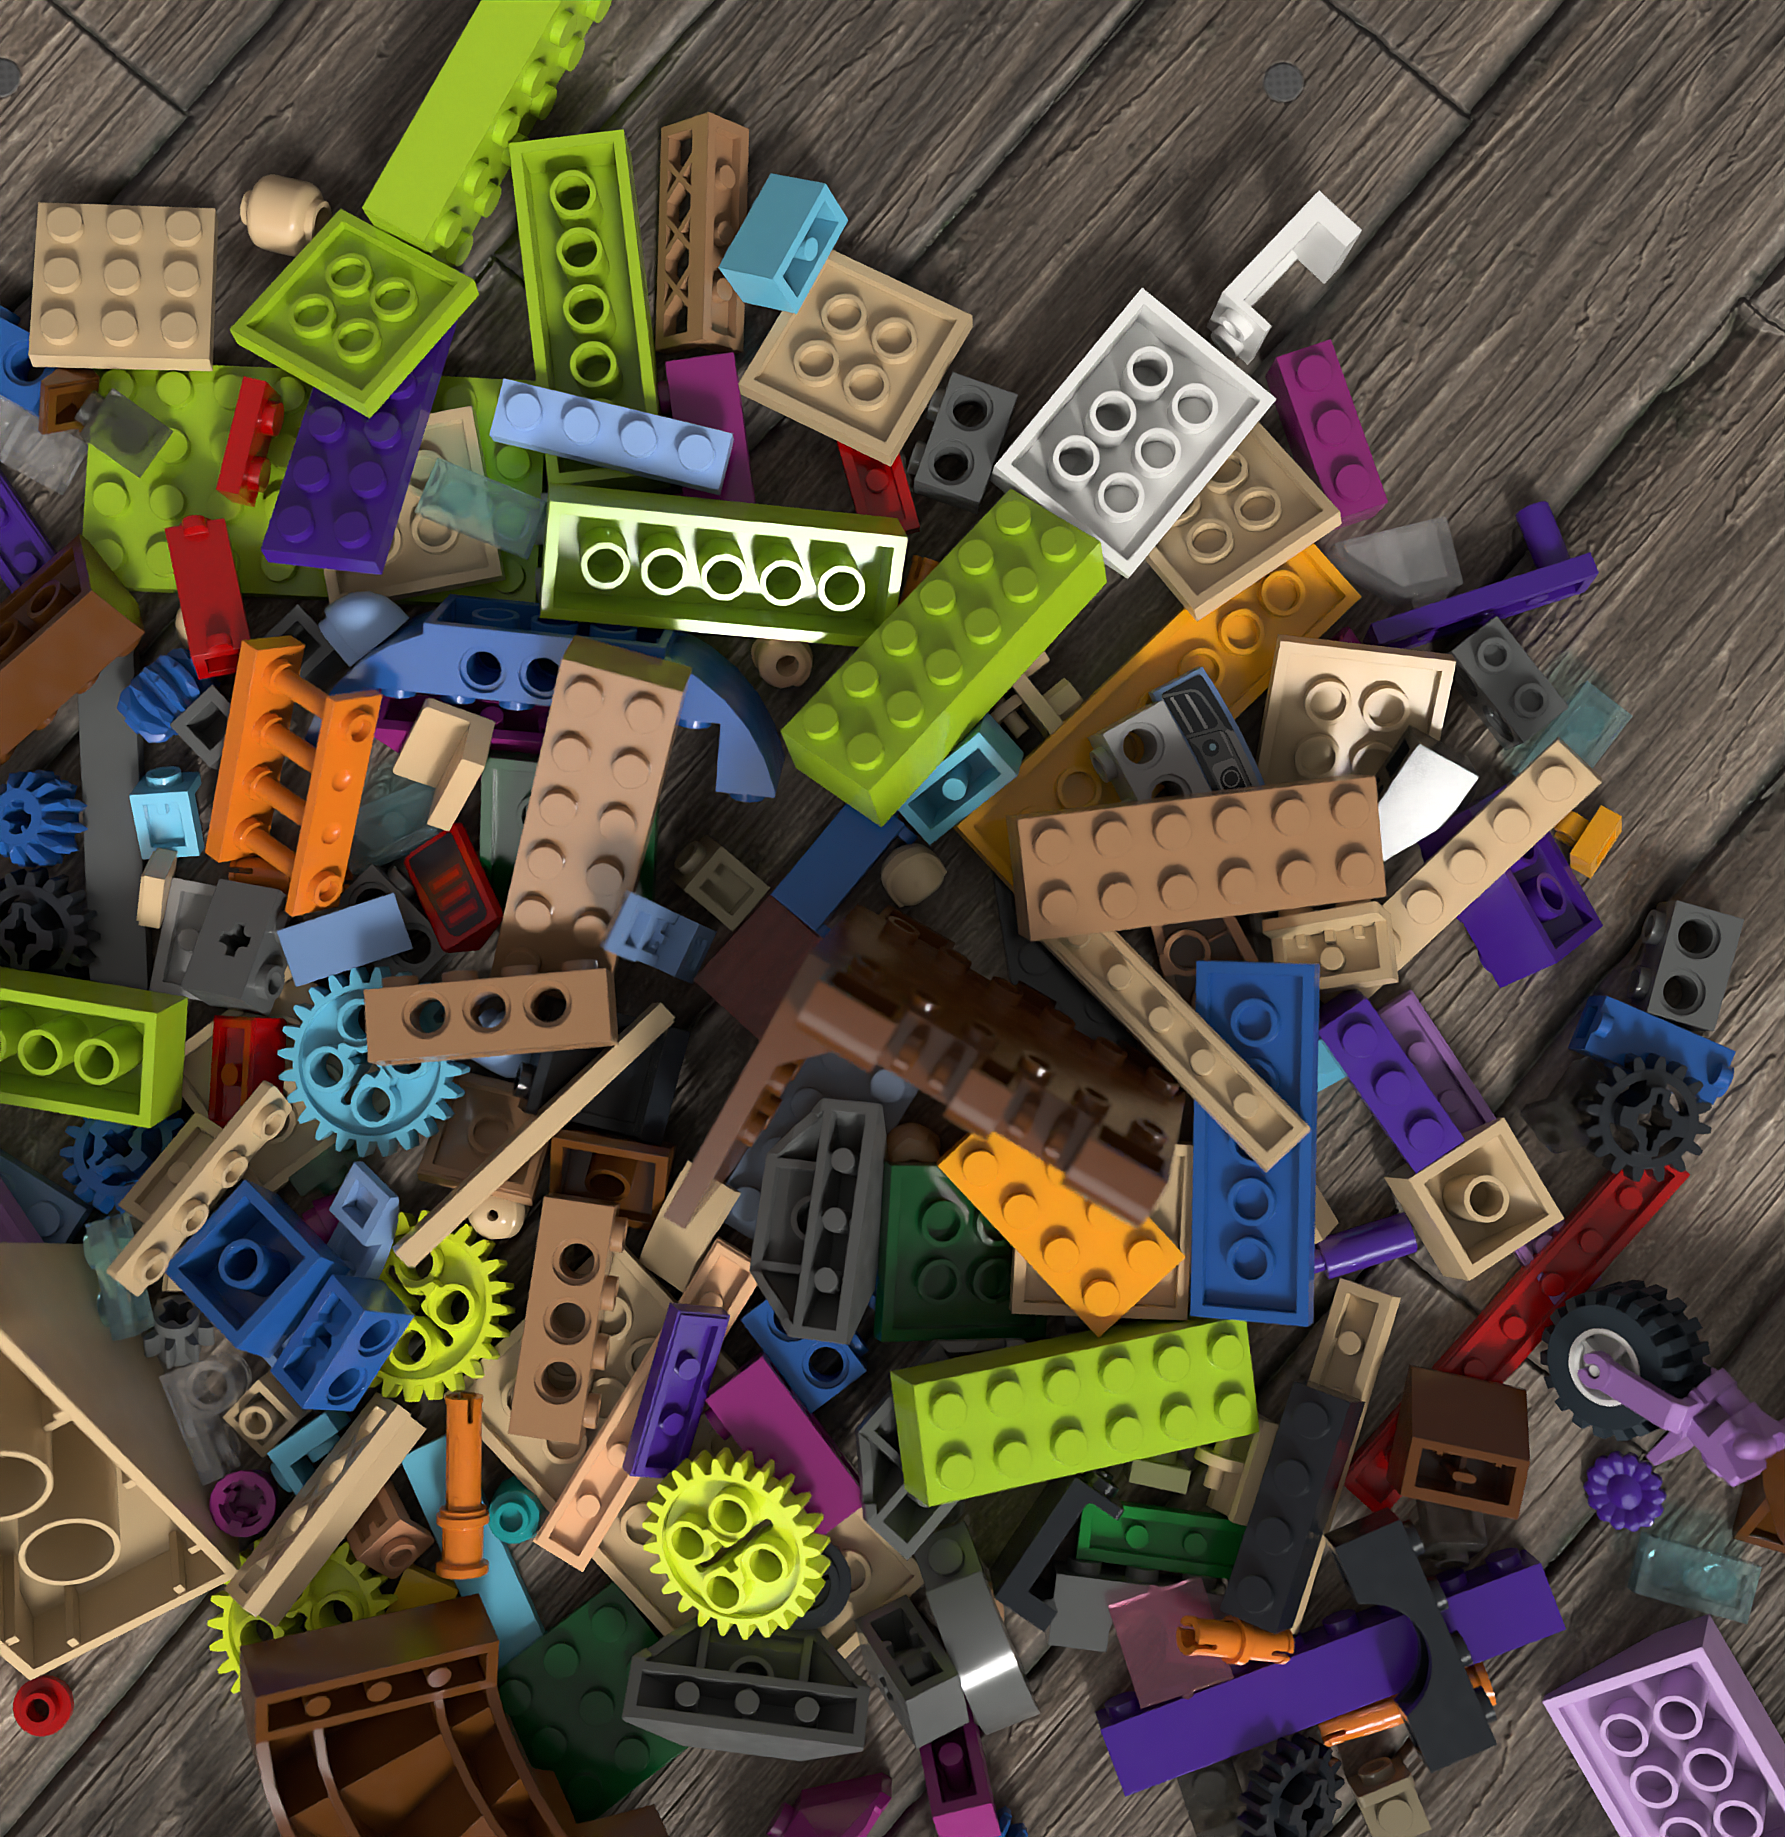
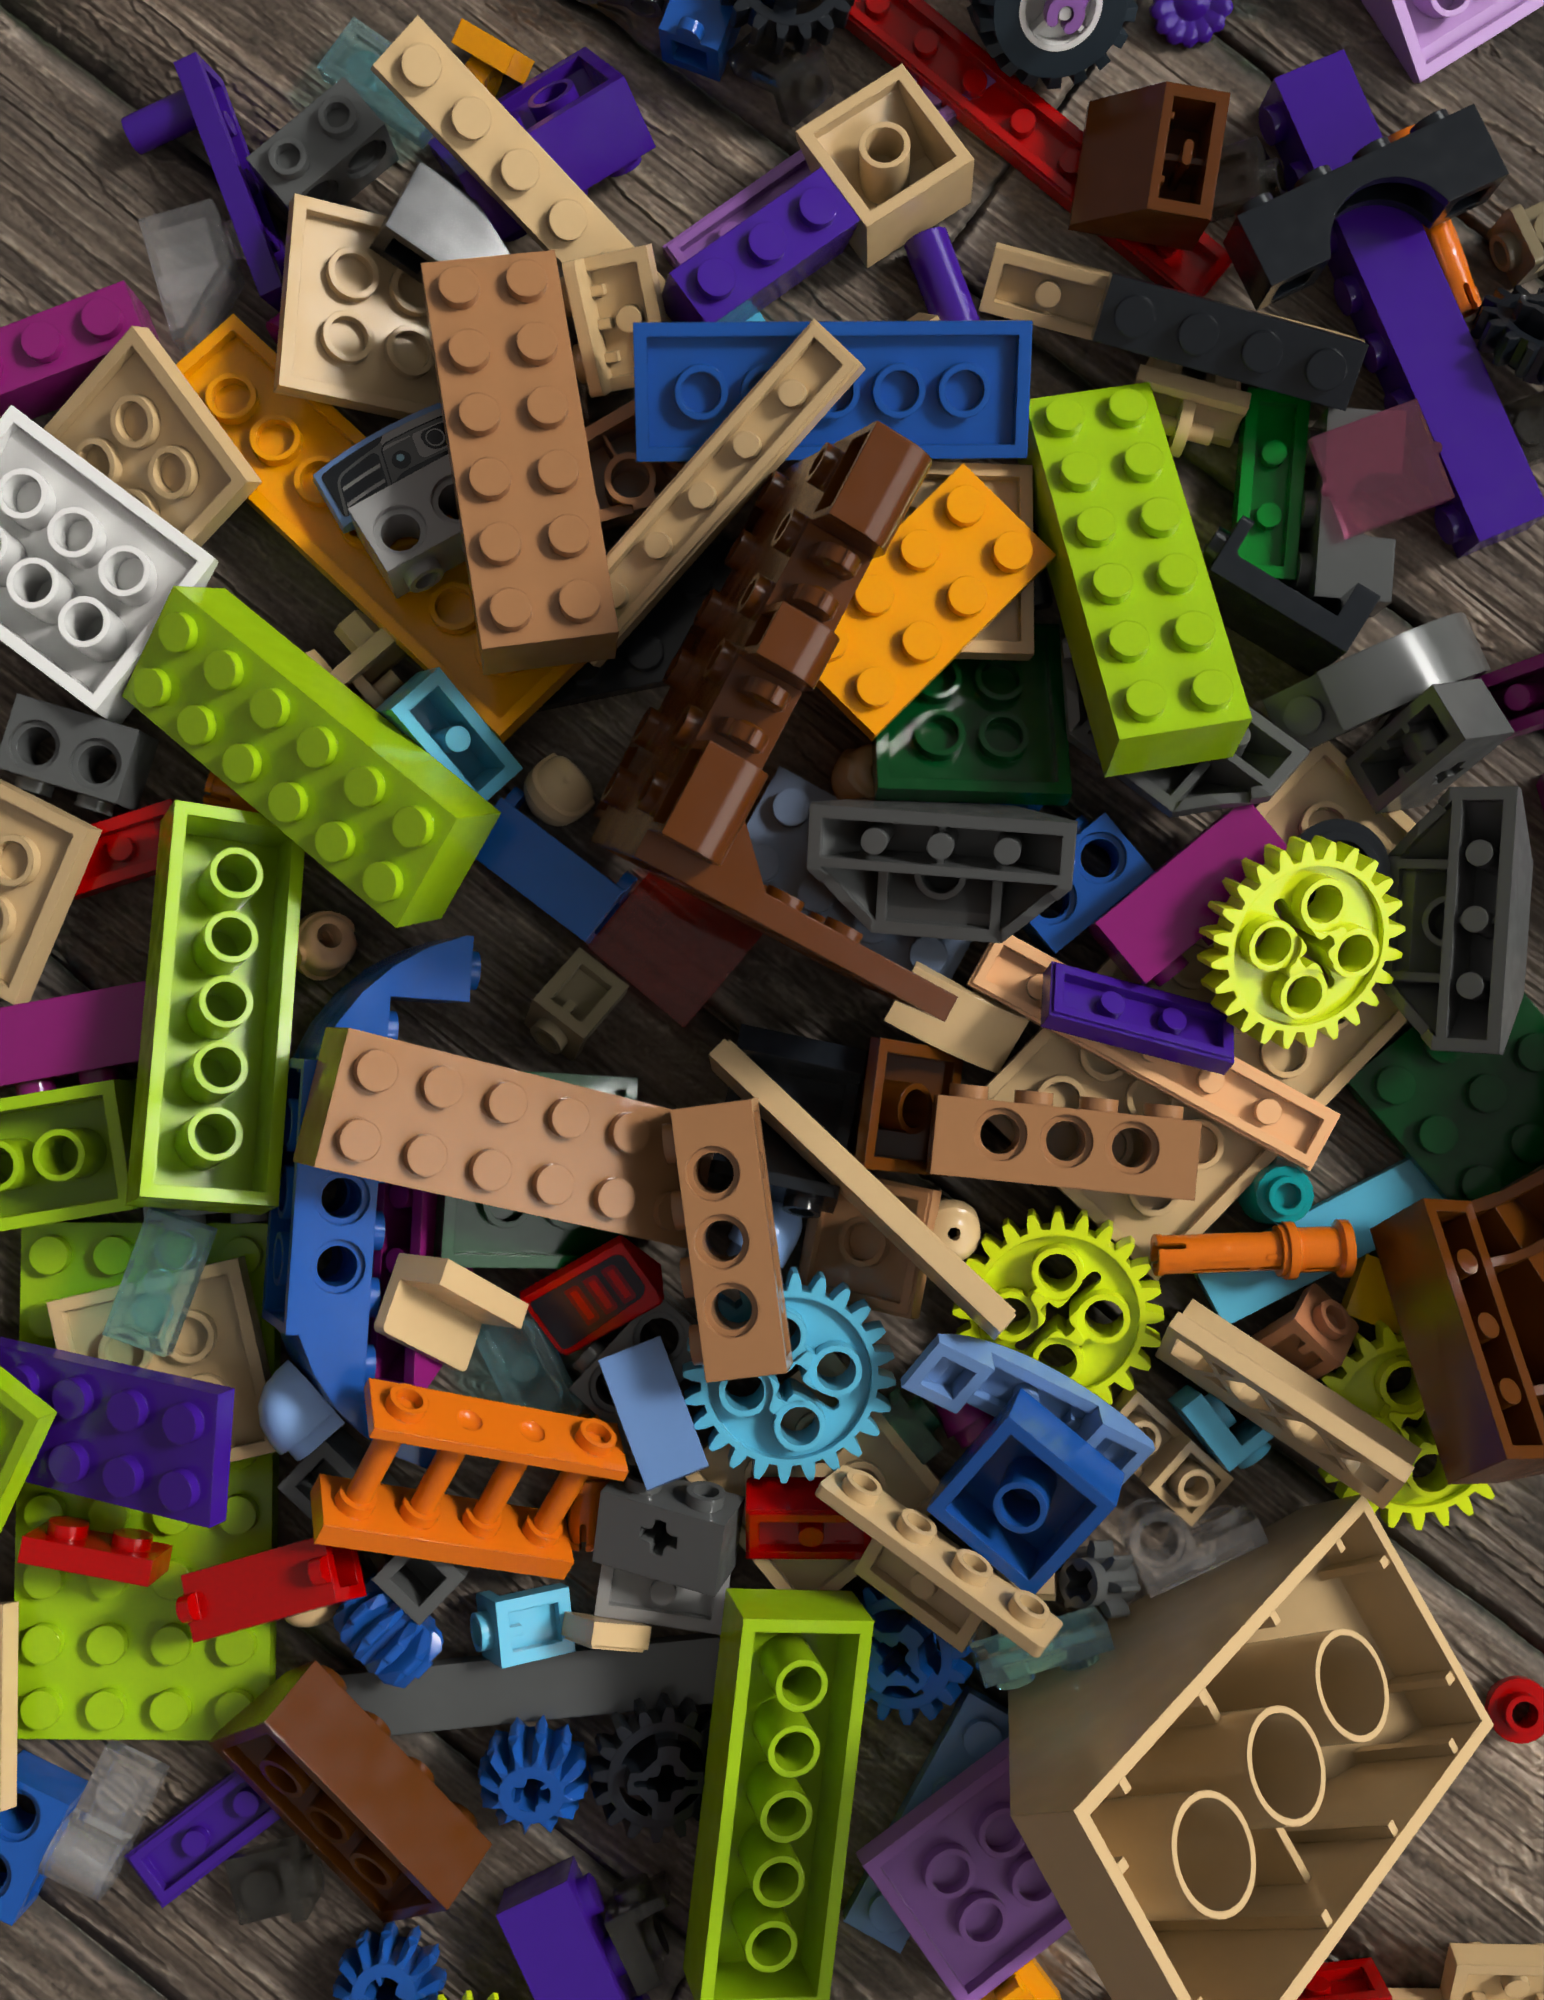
camera: 85 degrees left, 0 degrees up
(62, 396) = (55, 1764): reddish brown slope -> none
(121, 430) = (86, 1700): clear smoke bracket -> none
(244, 1502) = (1285, 1495): magenta hat -> none
(342, 1343) = (1104, 1391): blue brick -> none
(611, 436) = (73, 1140): light blue plate -> none
(657, 937) = (635, 1062): medium blue slope -> none
(1159, 1472) = (1199, 489): olive plate -> none
(1232, 1640) = (1377, 397): orange pin -> none

